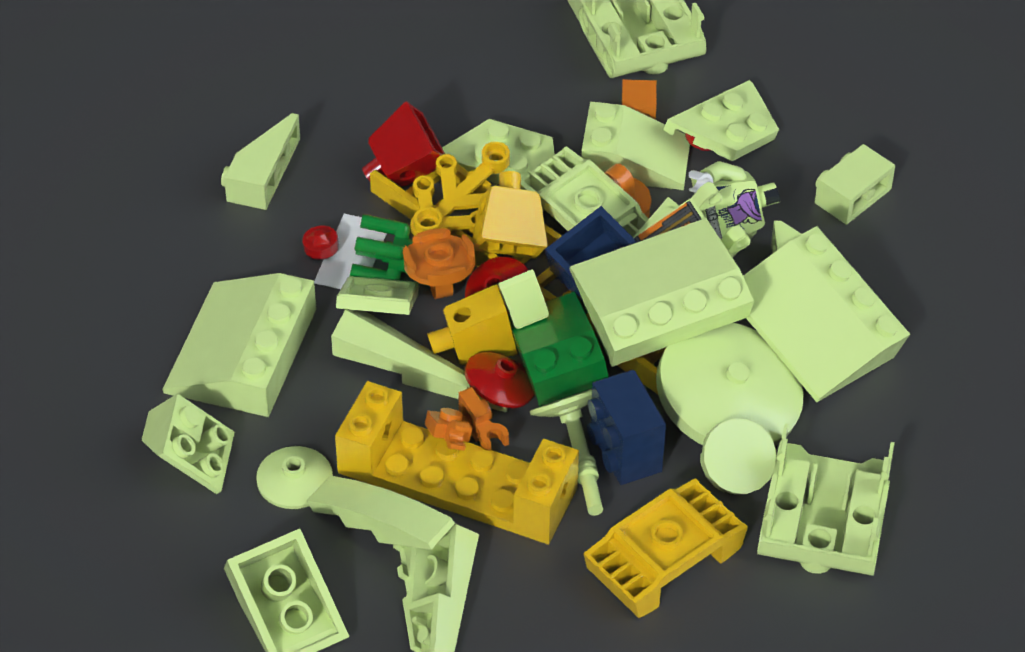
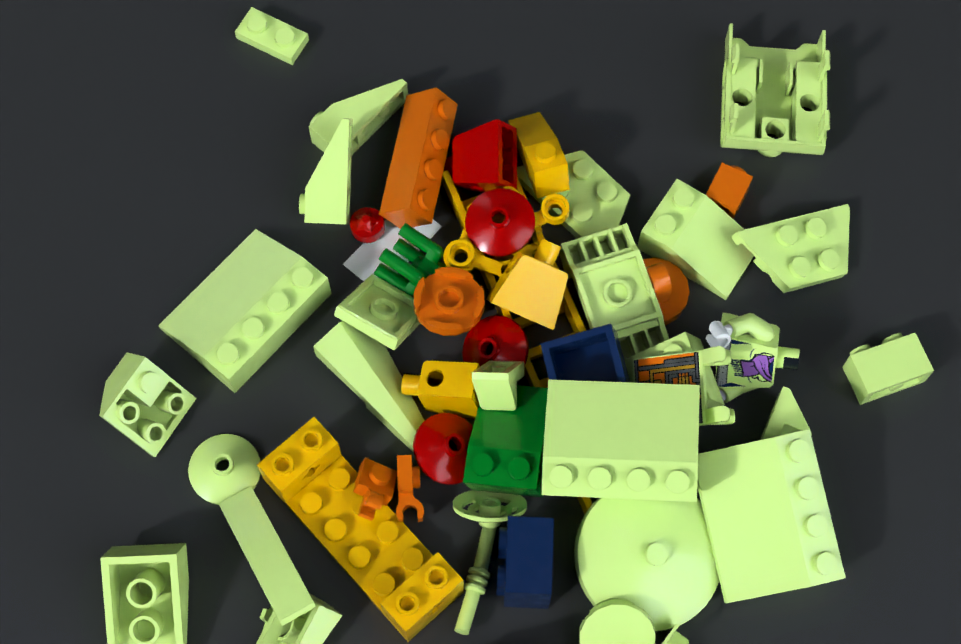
camera: 25 degrees right, 20 degrees up
(139, 131) = (272, 36): none -> yellowish green plate
(273, 218) = (329, 187): none -> yellowish green slope
(342, 168) = (418, 158): none -> orange brick
(455, 193) = (504, 237): none -> red dish
(461, 128) = (541, 155): none -> yellow slope

